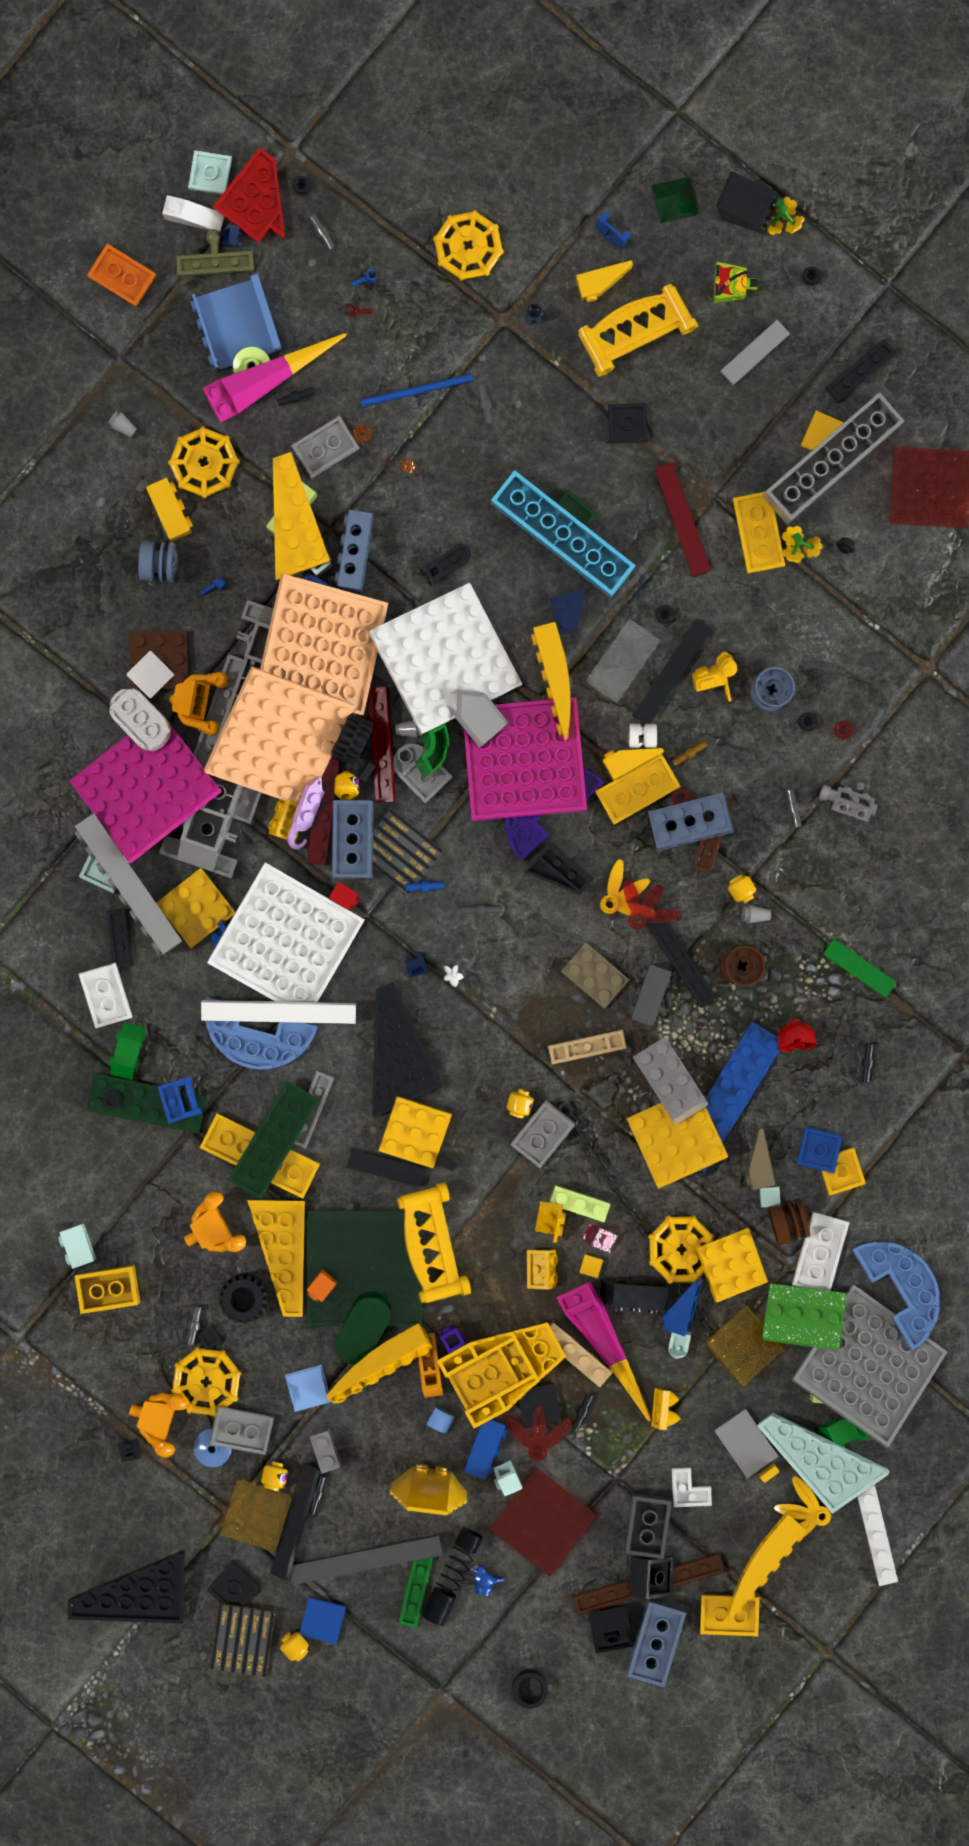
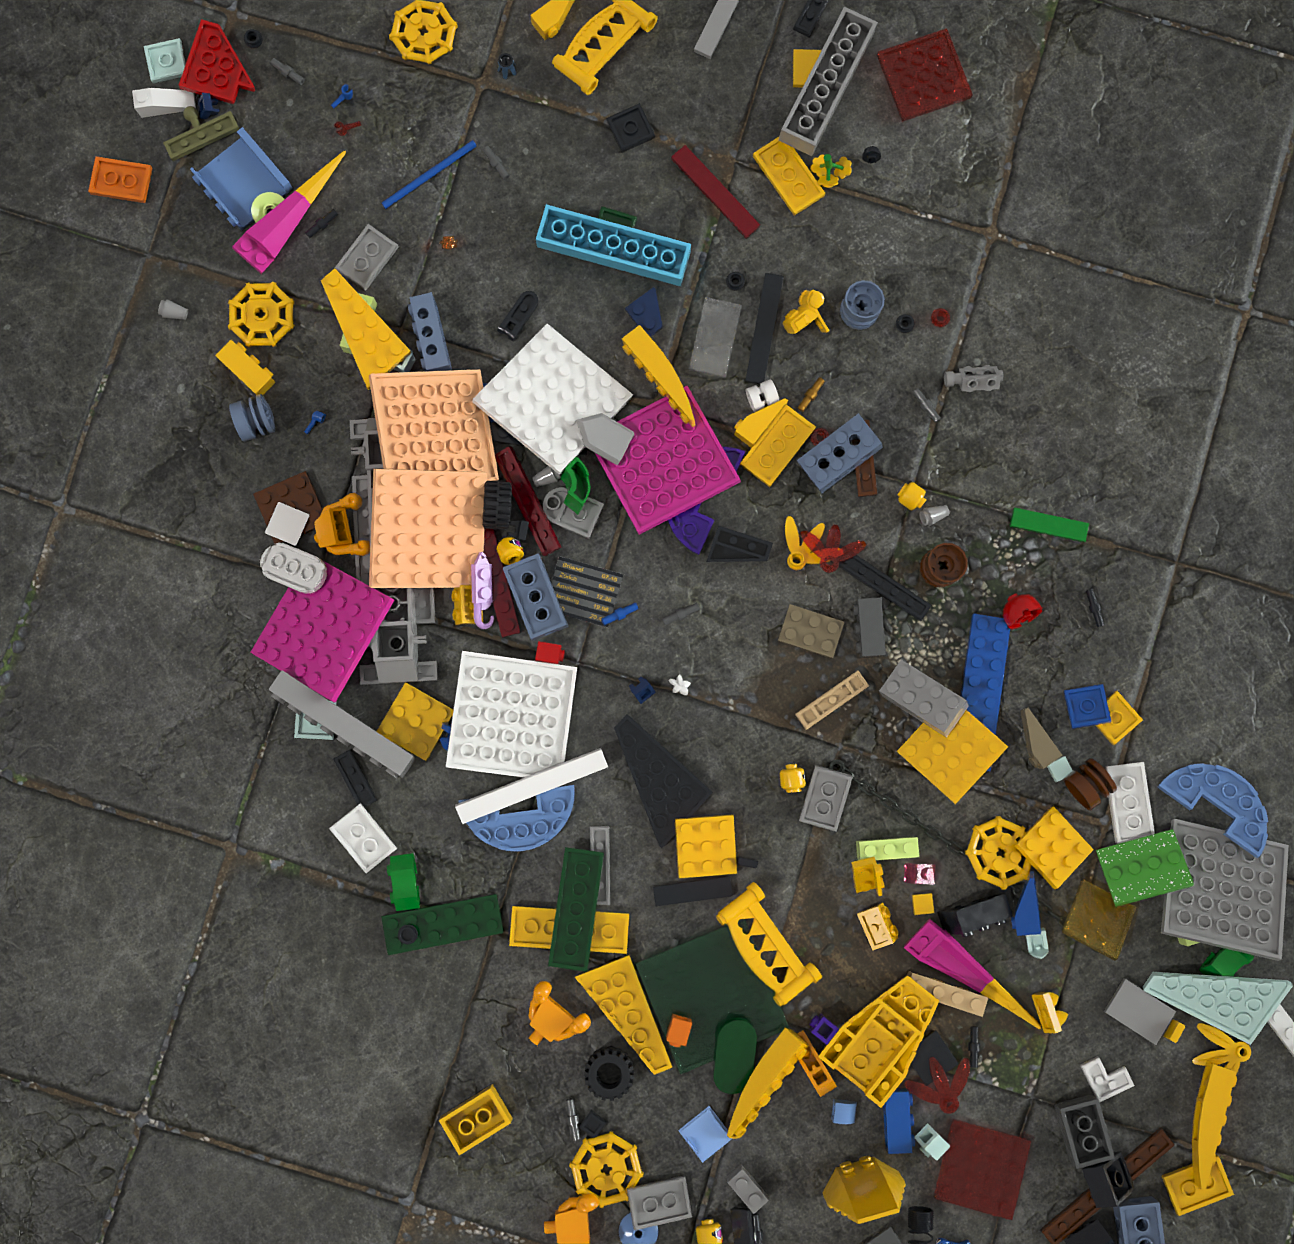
camera: 25 degrees left, 5 degrees down
(77, 1246) = (430, 1089): light aqua brick -> none
(173, 1101) = (465, 910): blue plate -> none
(357, 433) = (390, 231): clear orange plate -> none

